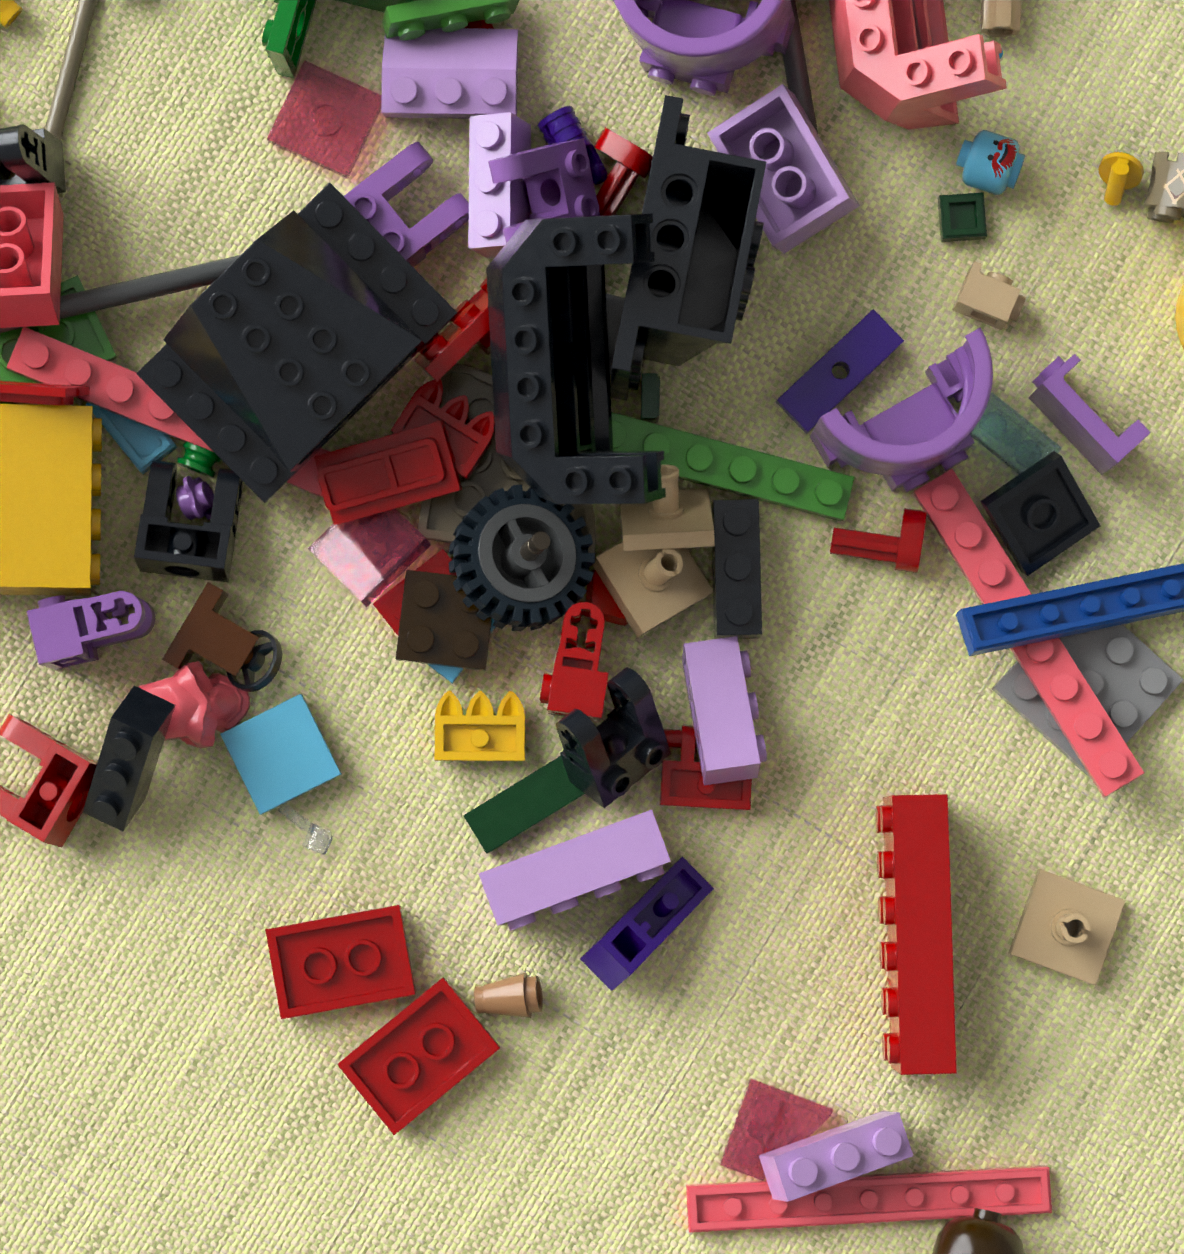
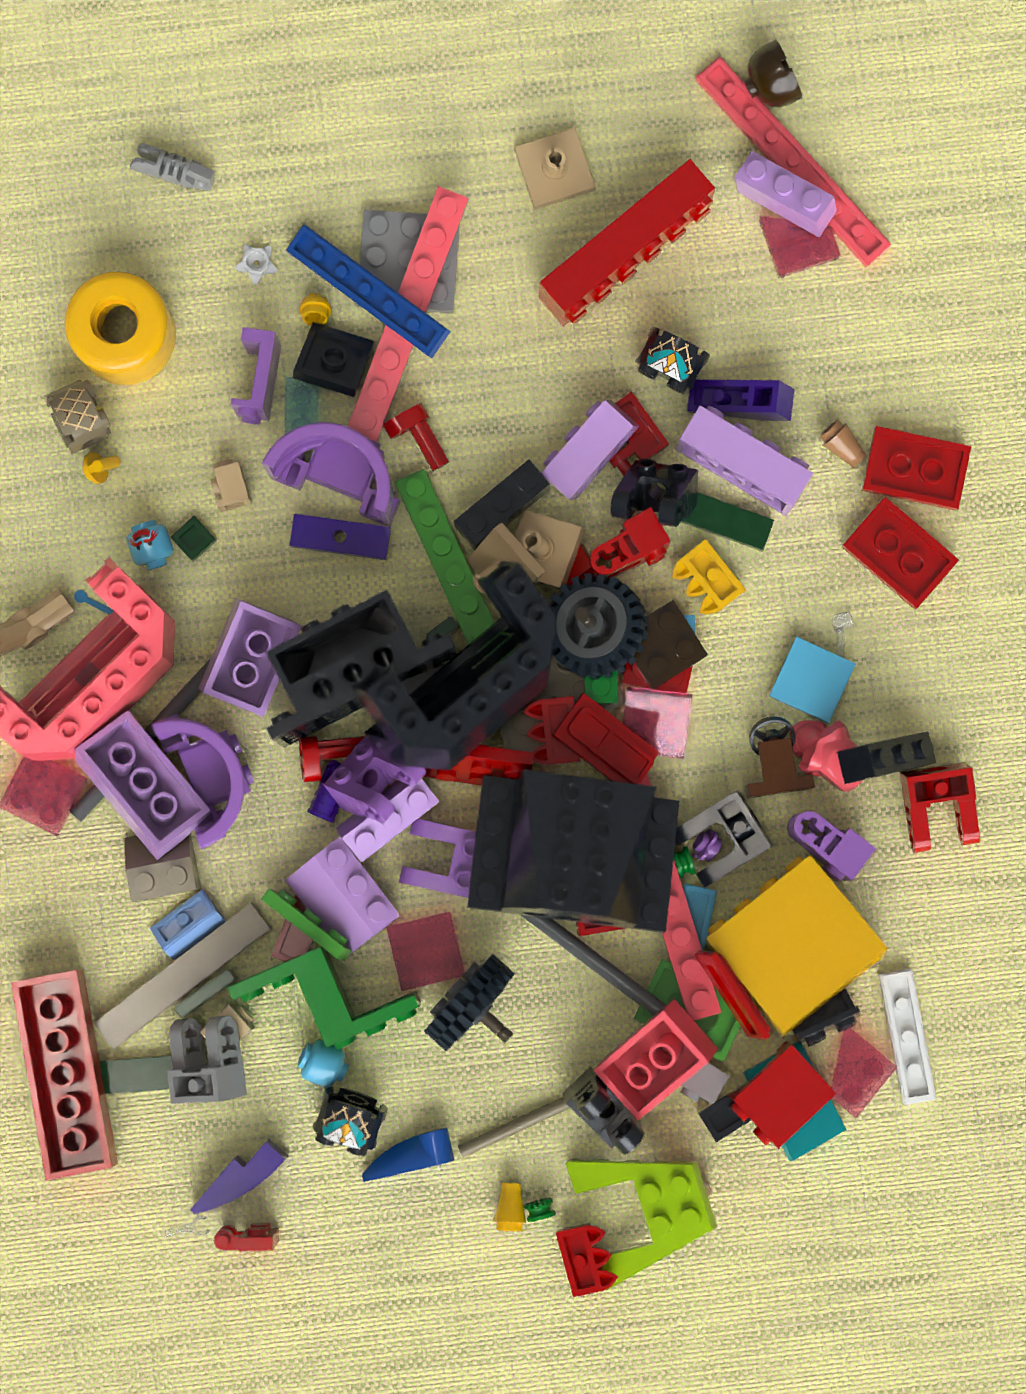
camera: 125 degrees left, 0 degrees up
(227, 110) = (470, 1003): none -> black wheel
(448, 515) = (603, 689): none -> green plate
(749, 878) = (671, 359): none -> black brick
(1113, 539) = (315, 309): none -> yellow plate

